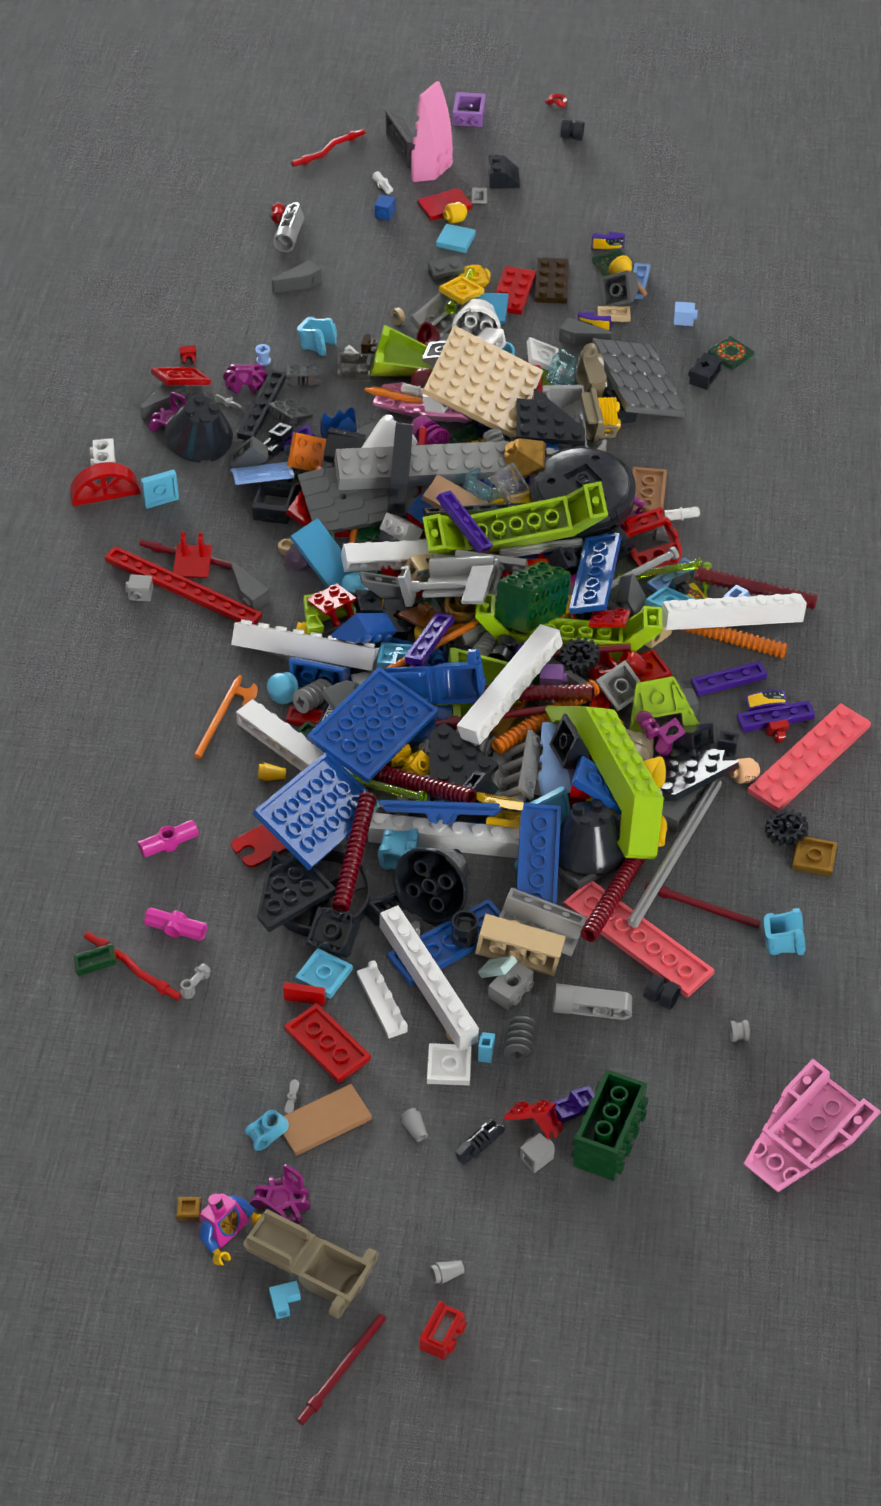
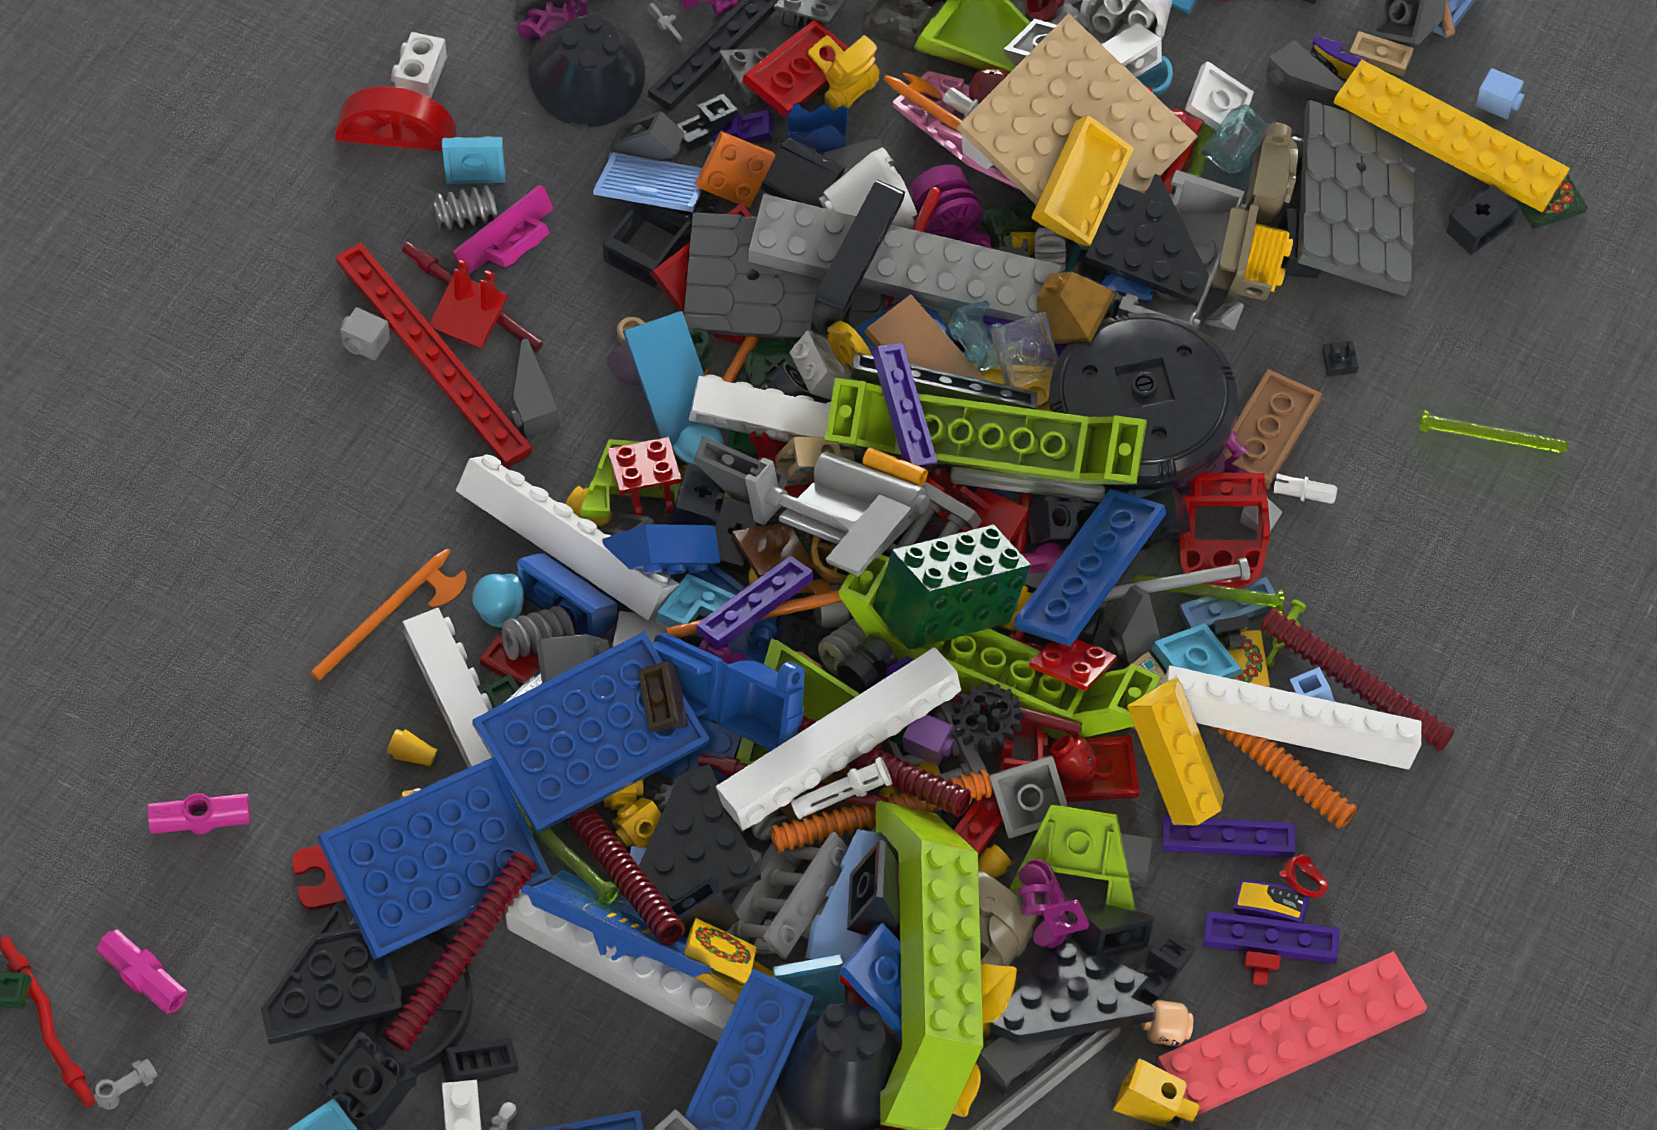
camera: 20 degrees right, 10 degrees up
(164, 512) = (464, 207): none -> light grey piece
(196, 518) = (509, 233): none -> dark pink bracket
(315, 399) = (789, 72): none -> red plate
(344, 392) = (850, 73): none -> yellow piece
(395, 845) = (541, 971): medium azure piece -> none
(404, 695) = (663, 697): none -> dark brown slope
(412, 509) = (845, 342): none -> yellow tile
(432, 882) = (559, 1053): black cone -> none
(470, 551) = (892, 466): none -> light orange piece
(498, 401) = (1083, 181): none -> yellow slope
(530, 701) = (856, 783): none -> white pin
(667, 452) = (1340, 358): none -> black tile
(671, 336) = (1451, 135): none -> yellow plate
(688, 641) = (1177, 754): none -> yellow slope
(756, 803) = (1154, 1096): none -> yellow torso
(758, 463) = (1428, 421): none -> clear neon green bar
(776, 680) = (1308, 867): none -> red piece

